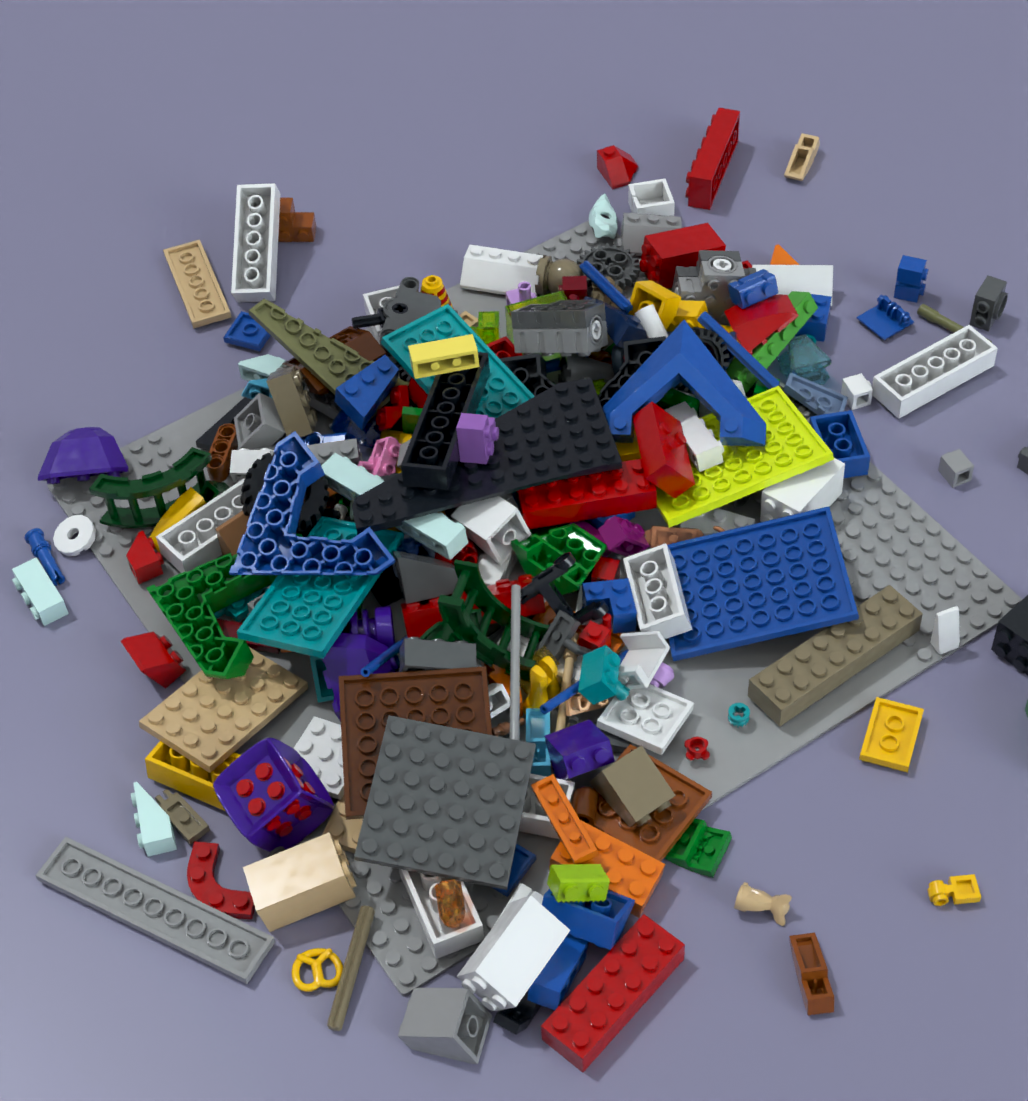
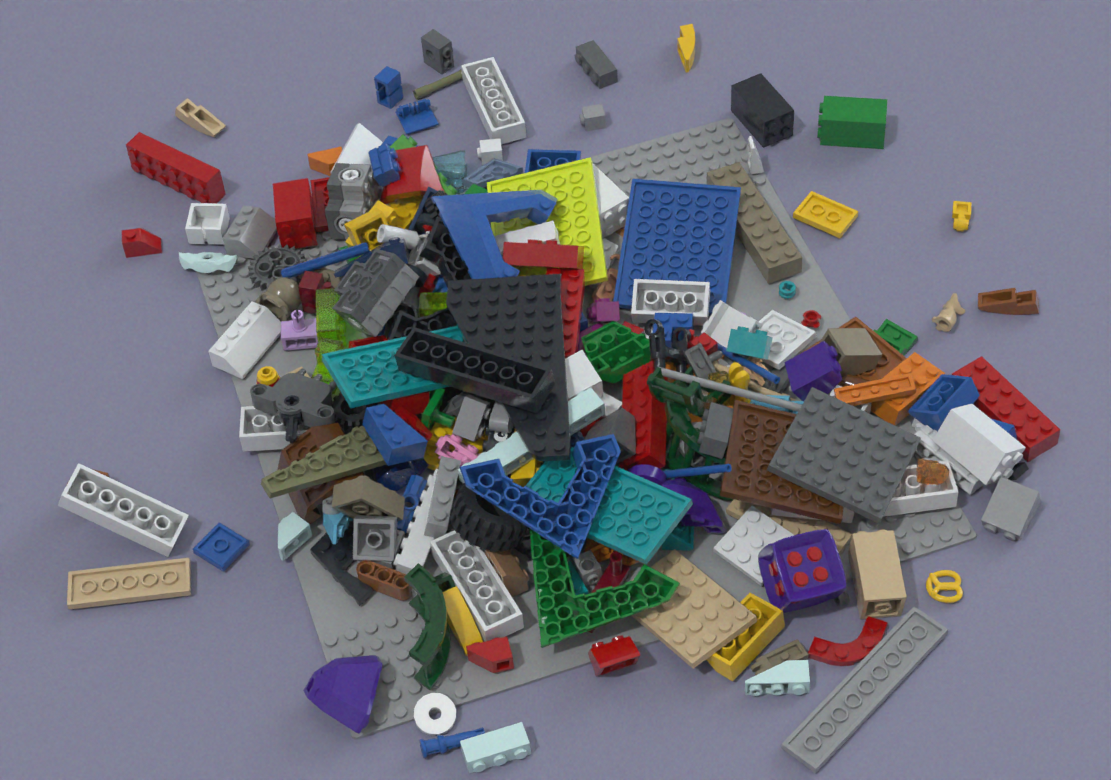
camera: 75 degrees left, 0 degrees up
(350, 968) = (950, 561): dark tan axle -> none
(443, 356) = (412, 351): light yellow brick -> none
(476, 437) = (510, 343): medium lavender brick -> none
(578, 882) = (932, 392): lime brick -> none
(739, 351) = (466, 188): blue axle -> none

